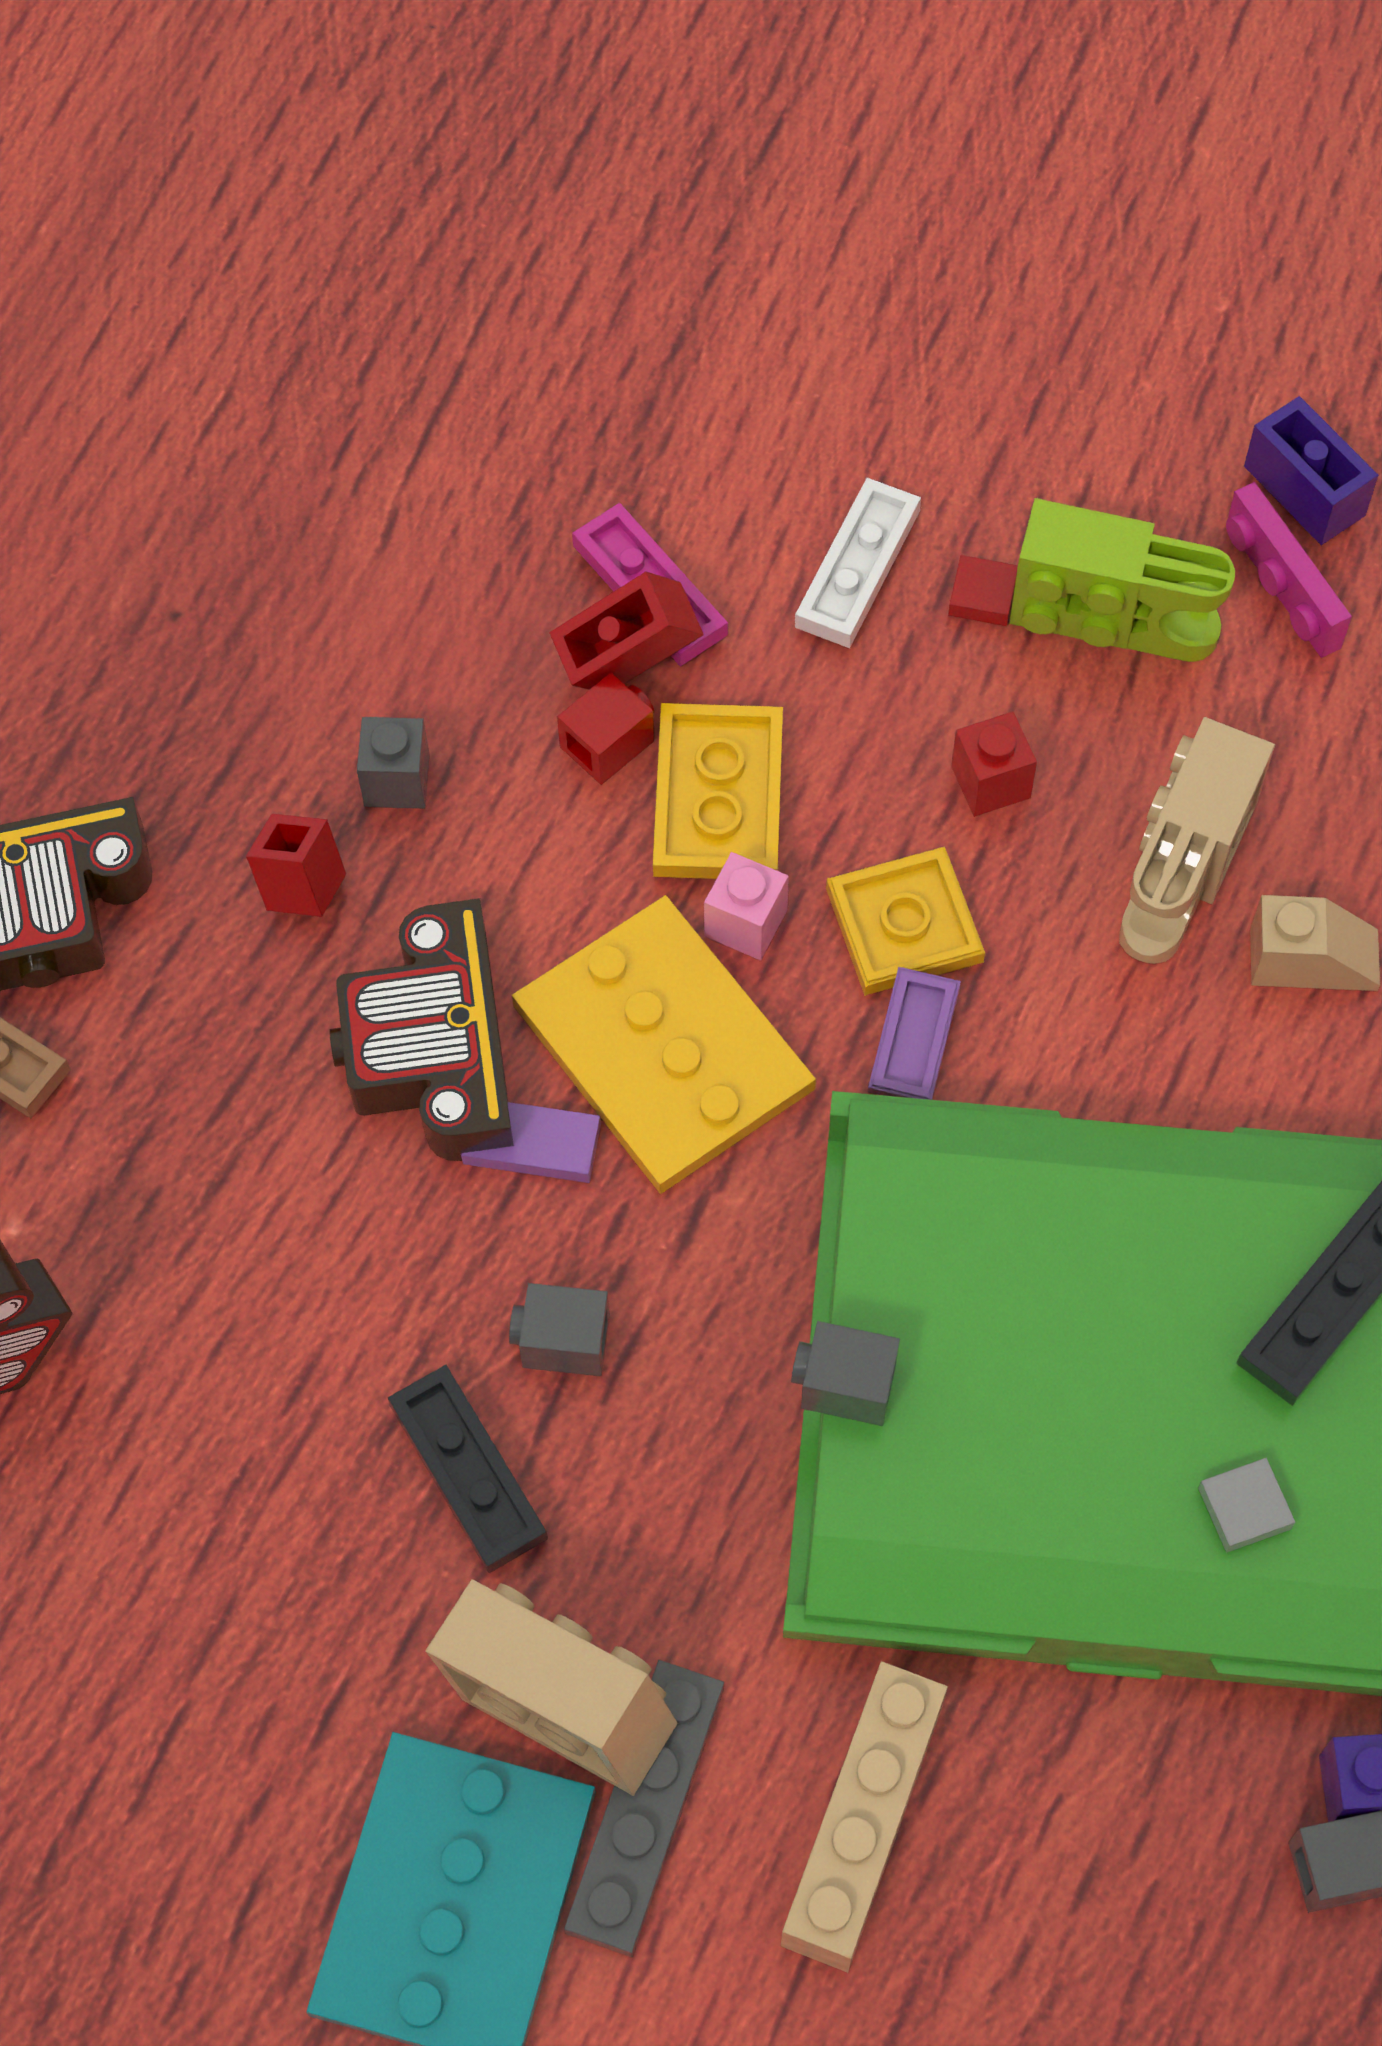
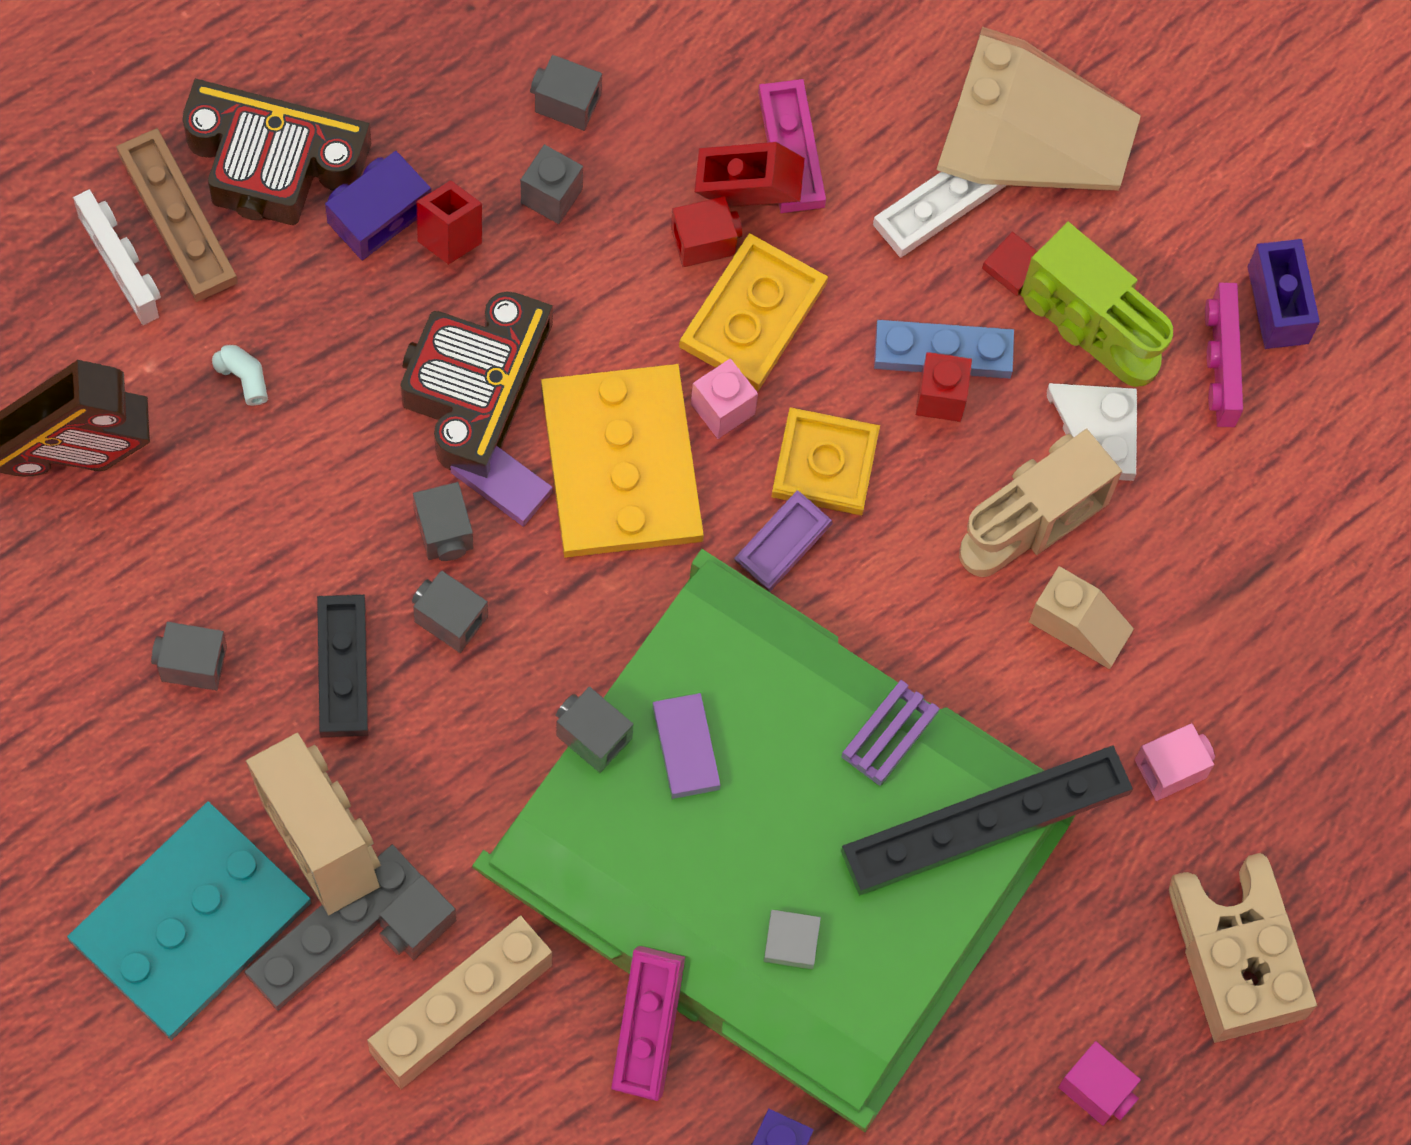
camera: 20 degrees right, 5 degrees up
(138, 1165) = (247, 368): none -> light aqua arm
(193, 890) = (376, 204): none -> dark purple brick
(266, 1558) = (190, 655): none -> dark grey brick
(348, 650) = (566, 92): none -> dark grey brick
(492, 1225) = (443, 522): none -> dark grey brick
(744, 1738) = (416, 918): none -> dark grey brick
(913, 425) = (1035, 122): none -> tan wedge
(925, 737) = (905, 344): none -> medium blue plate
(971, 1334) = (686, 746): none -> medium lavender tile
(1118, 1711) = (648, 1023): none -> dark pink tile
(1178, 705) = (1106, 413): none -> white wing
(1211, 1136) = (914, 701): none -> medium lavender tile

